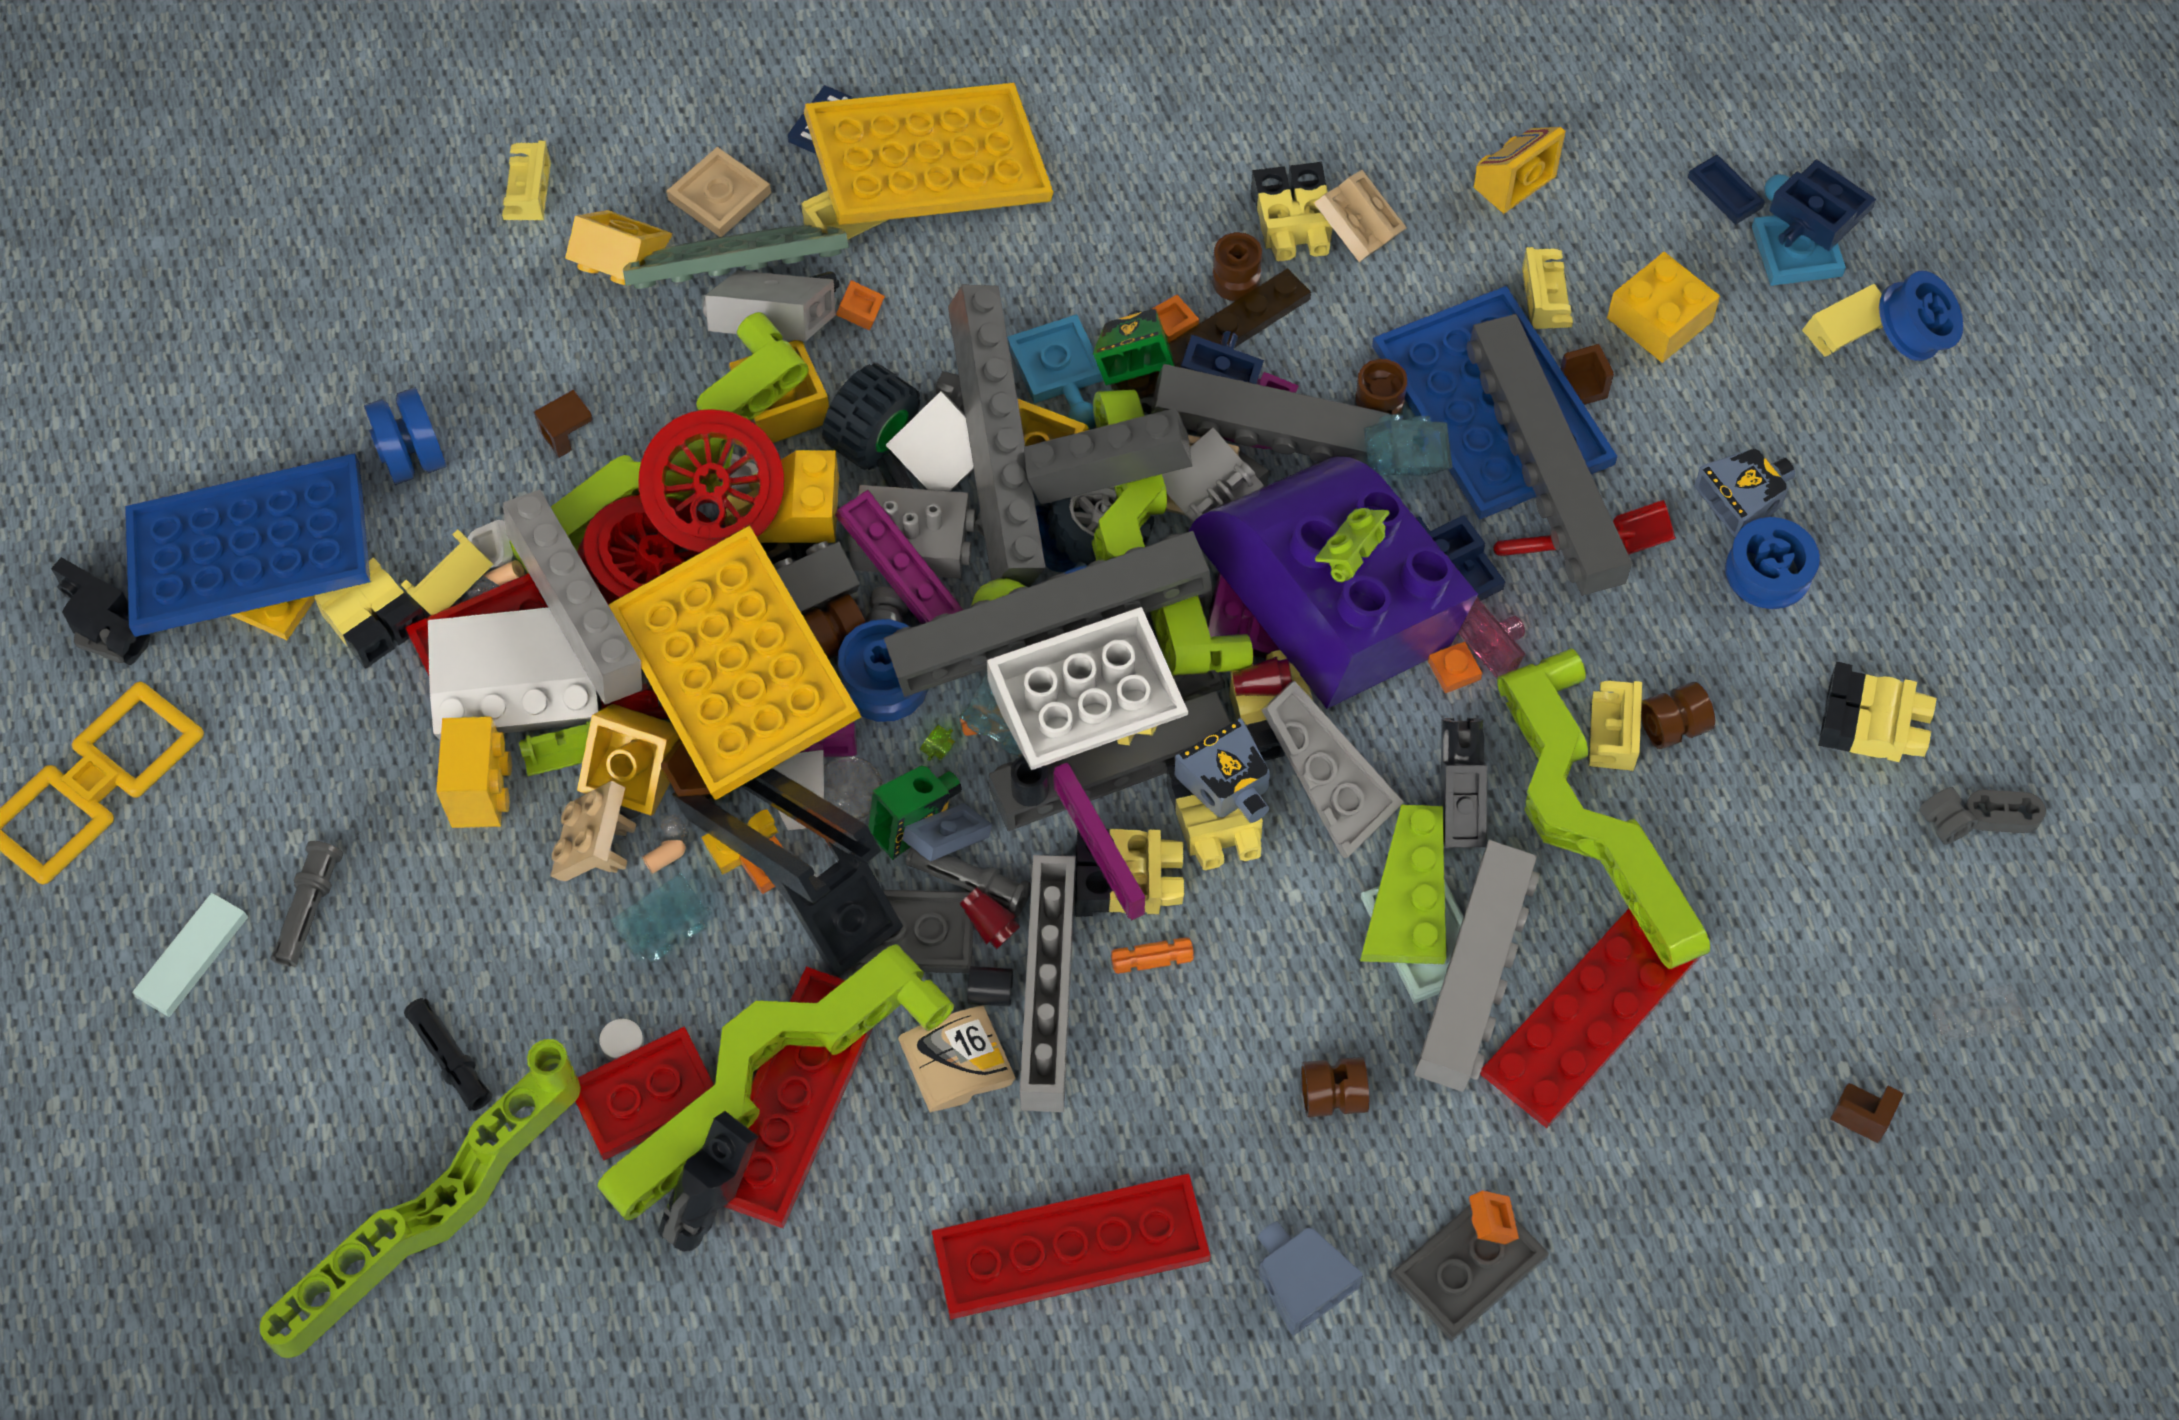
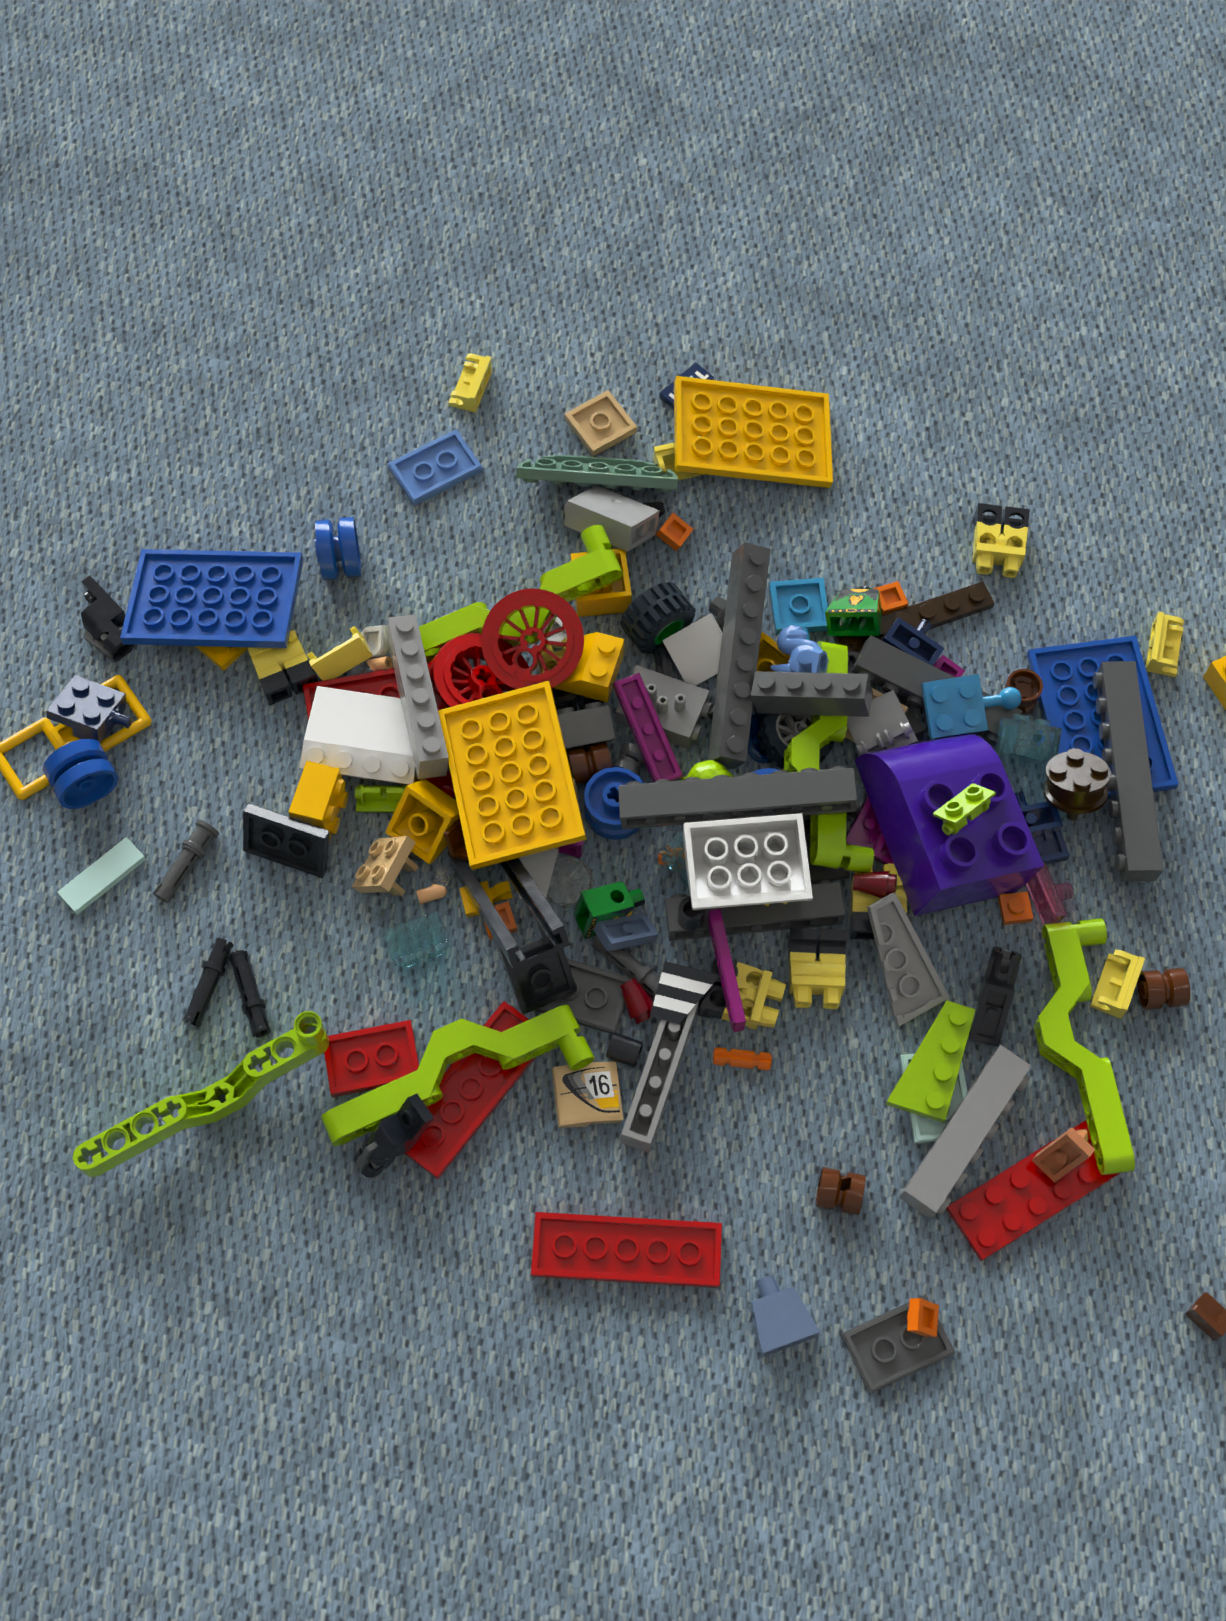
camera: 15 degrees right, 5 degrees up
(111, 735) = (89, 709): none -> plate
(122, 822) = (80, 773): none -> blue wheel
(386, 1039) = (206, 986): none -> black pin
(441, 835) = (285, 840): none -> black plate
(508, 303) = (435, 467): none -> medium blue tile
(560, 419) = (447, 562): reddish brown panel -> none
(610, 241) = (518, 441): yellow slope -> none
(620, 1038) = (366, 1015): white tile -> none
(938, 743) = (638, 865): clear neon green plate -> none
(1044, 885) = (680, 991): none -> sticker
(1080, 408) = (804, 653): none -> medium blue animal
(1226, 772) = (829, 945): sand blue torso -> none
(1236, 265) = (946, 571): reddish brown wheel -> none
(1305, 427) = (958, 706): none -> dark azure plate
(1360, 215) = (1045, 556): tan slope -> none
(1487, 484) = (1076, 782): none -> dark brown wheel
(1520, 167) = (1172, 548): yellow slope -> none
(1588, 373) = (1175, 717): reddish brown panel -> none
(1614, 953) = (1064, 1154): none -> nougat tile
(1636, 528) = (1174, 841): red piece -> none

